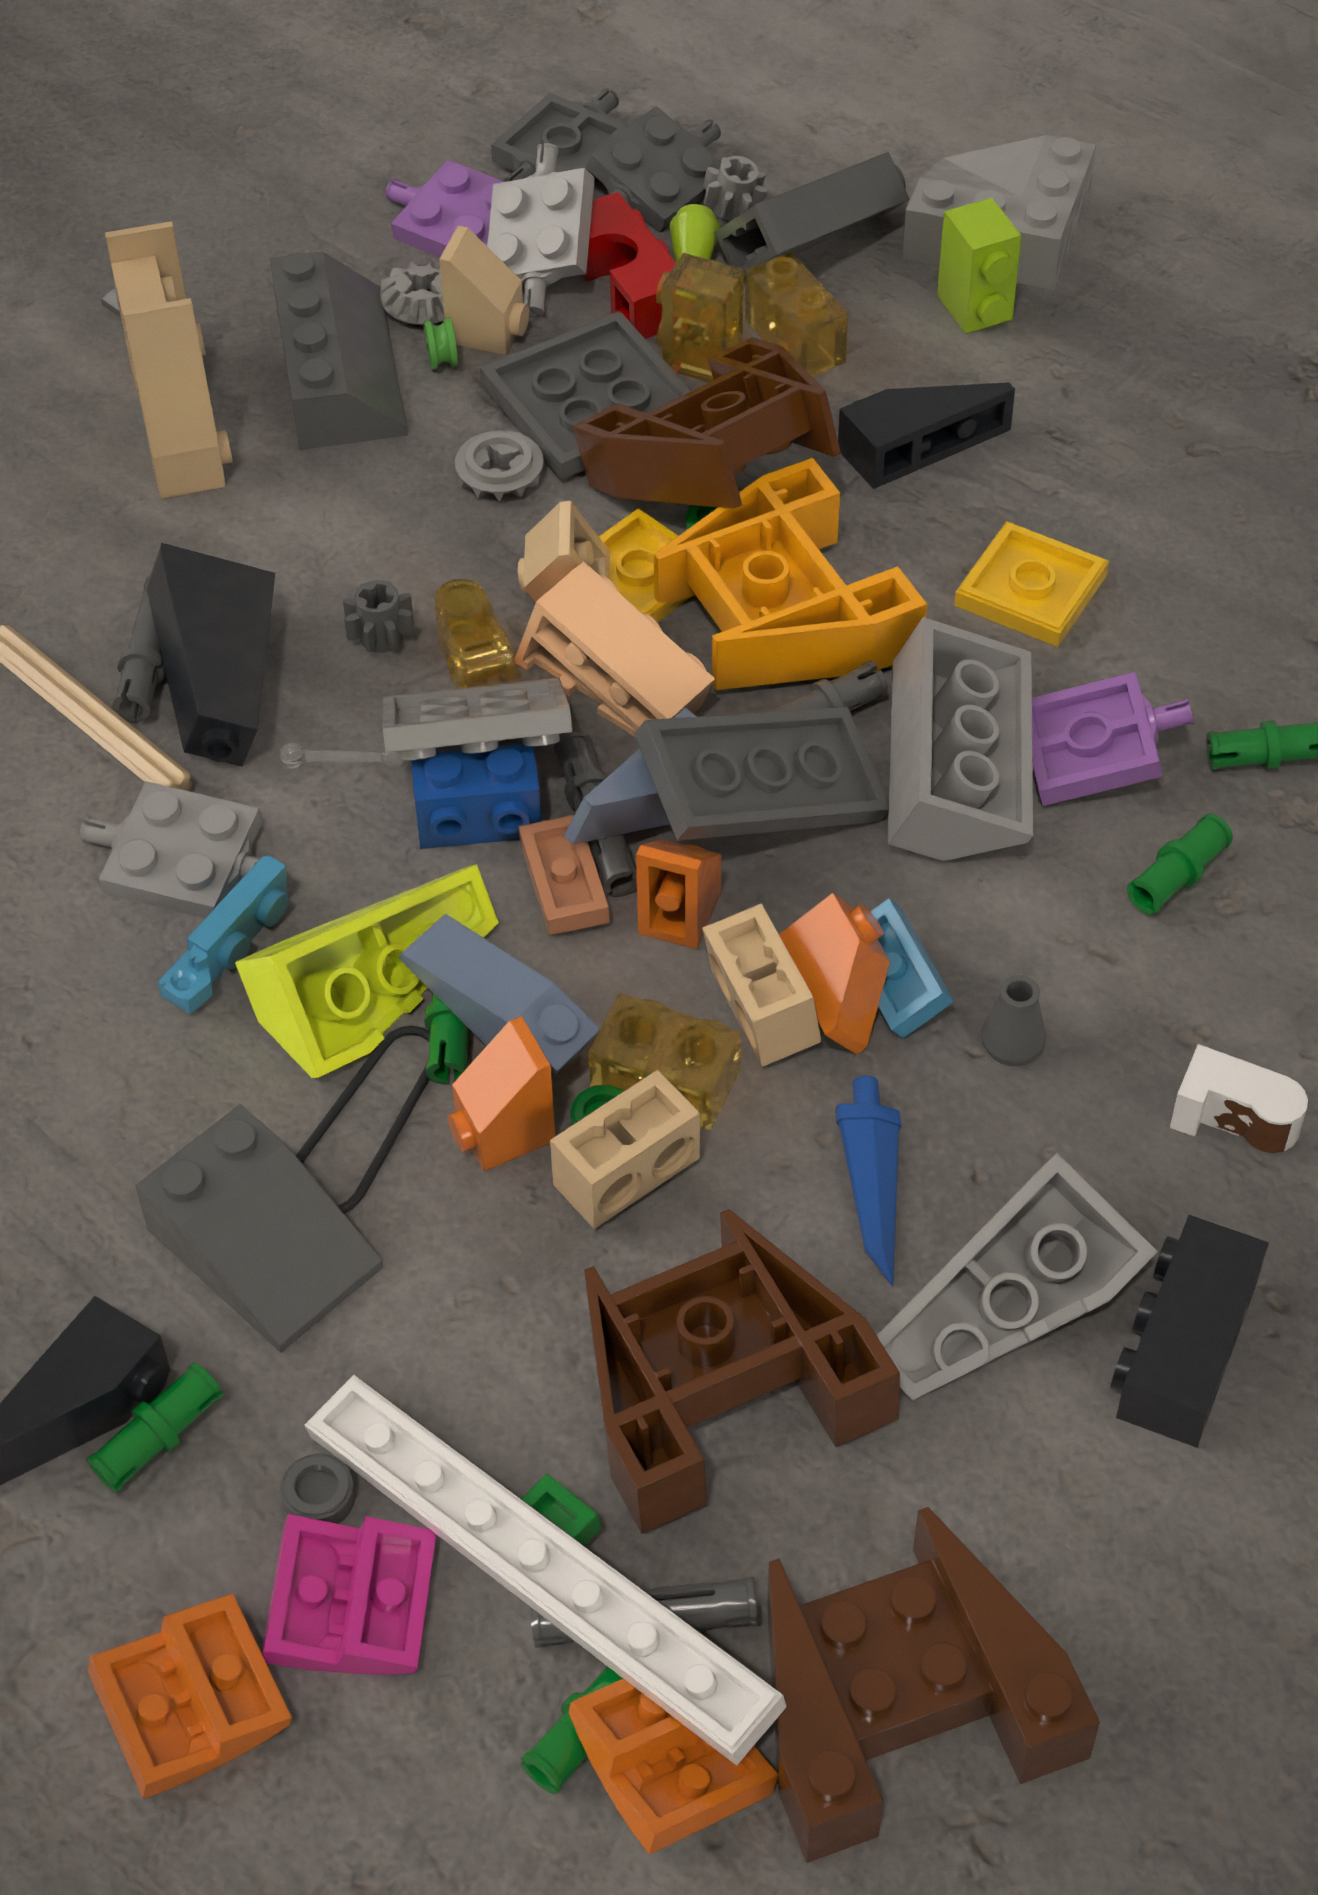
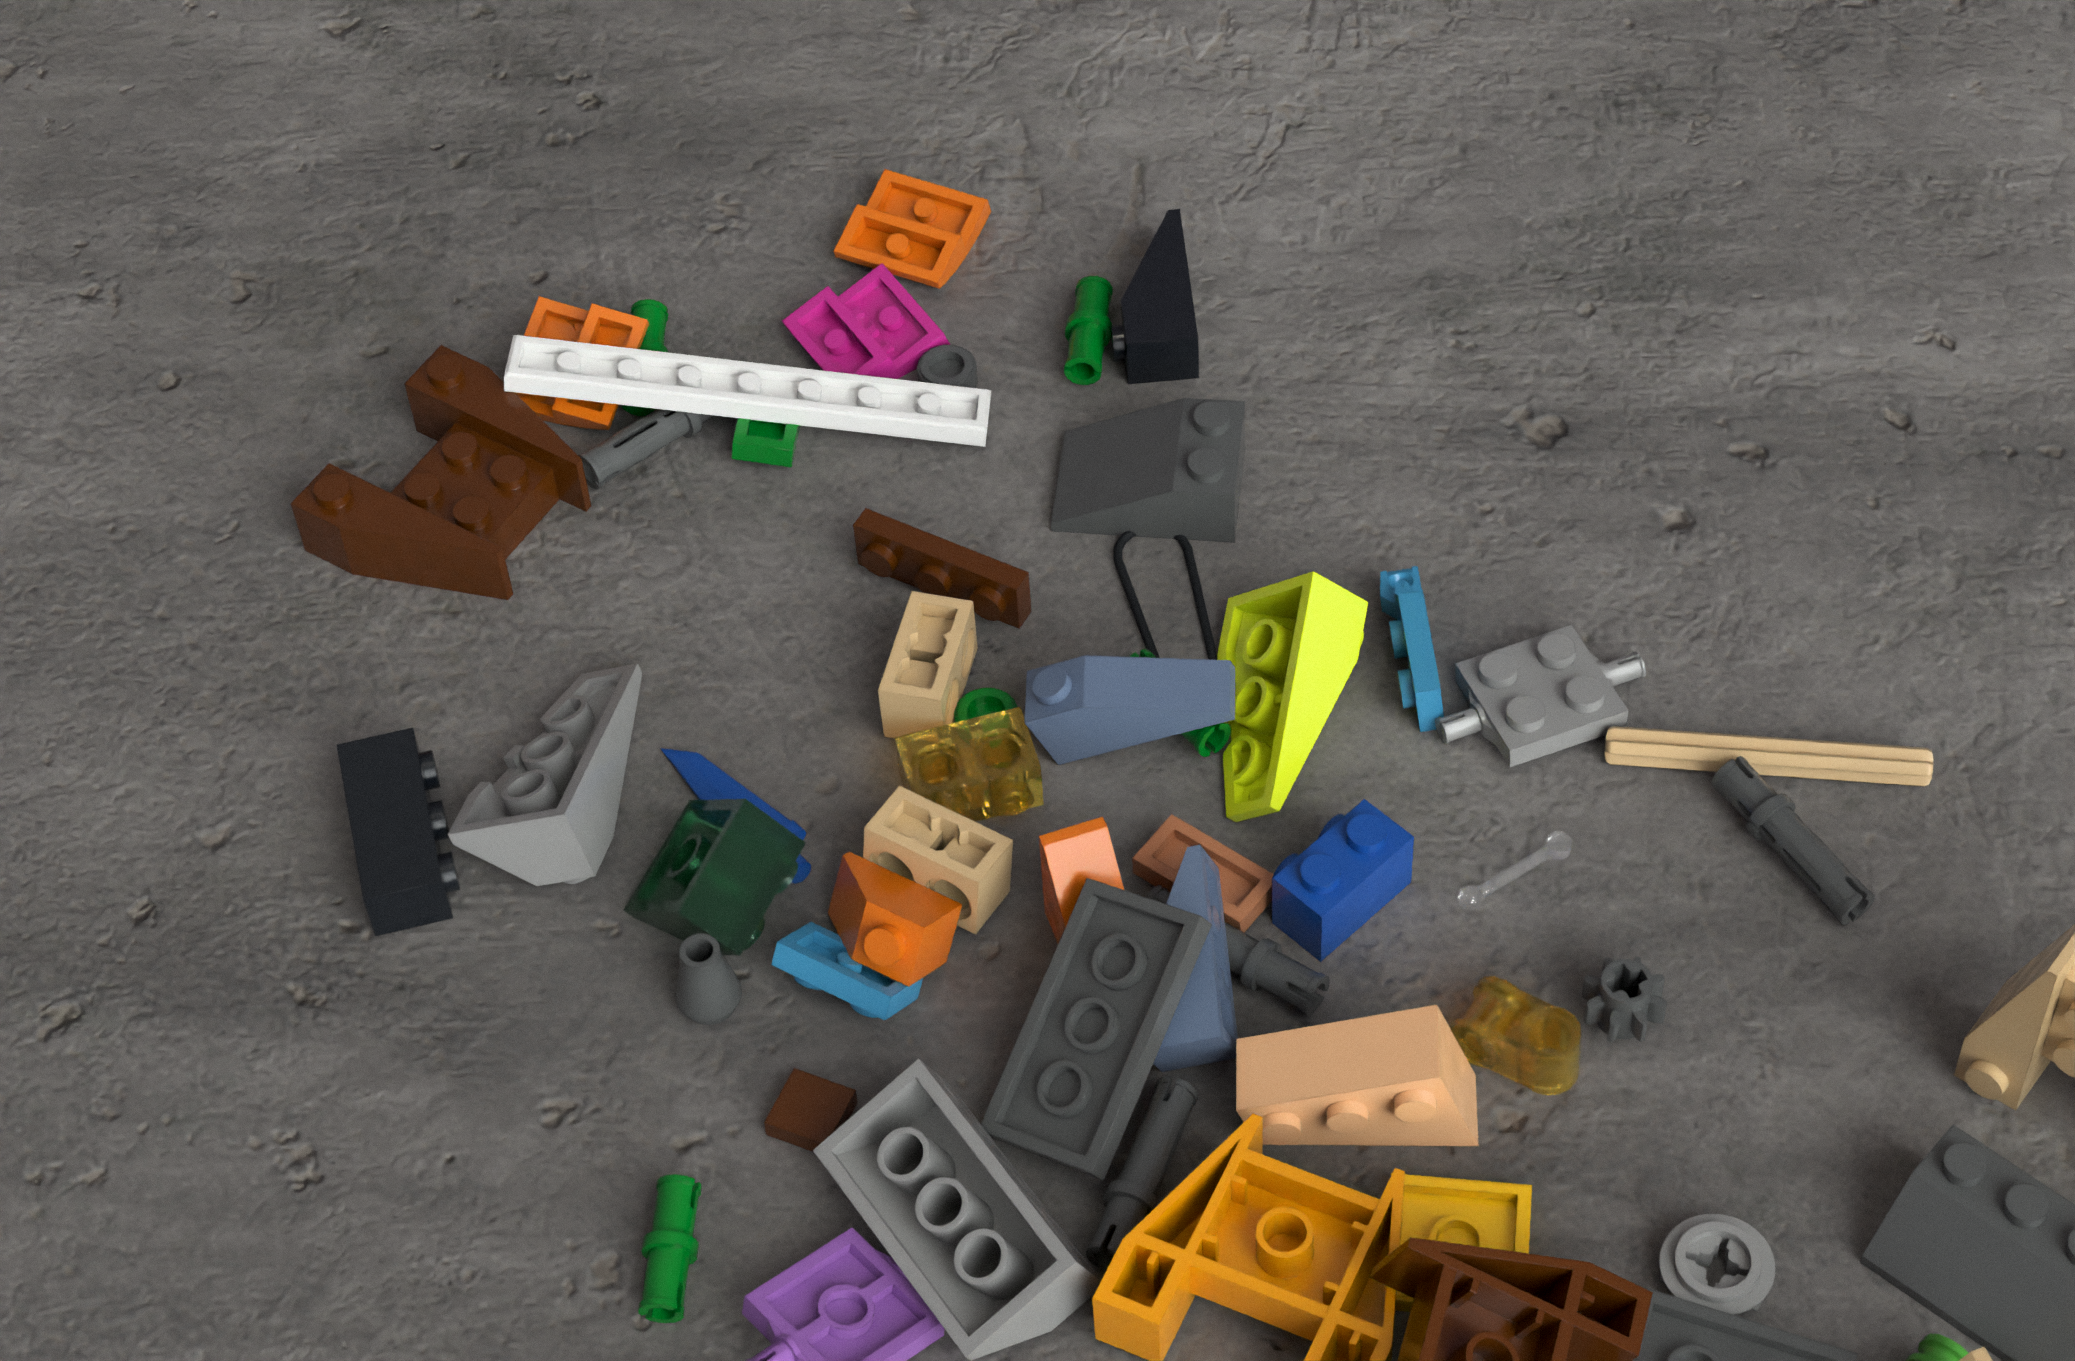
camera: 145 degrees right, 0 degrees up
(213, 647) = (1722, 855): black slope -> none
(475, 718) = (1404, 909): light grey plate -> none
(504, 1099) = (1046, 634): orange slope -> none
(525, 1259) = (942, 568): none -> reddish brown plate
(557, 548) = (1491, 1136): tan slope -> none
(717, 1339) = (738, 585): reddish brown wedge -> none
(949, 1095) = (717, 874): none -> clear green slope
(1001, 902) = (809, 1110): none -> reddish brown tile
(1240, 1100) = (470, 1044): white leg -> none

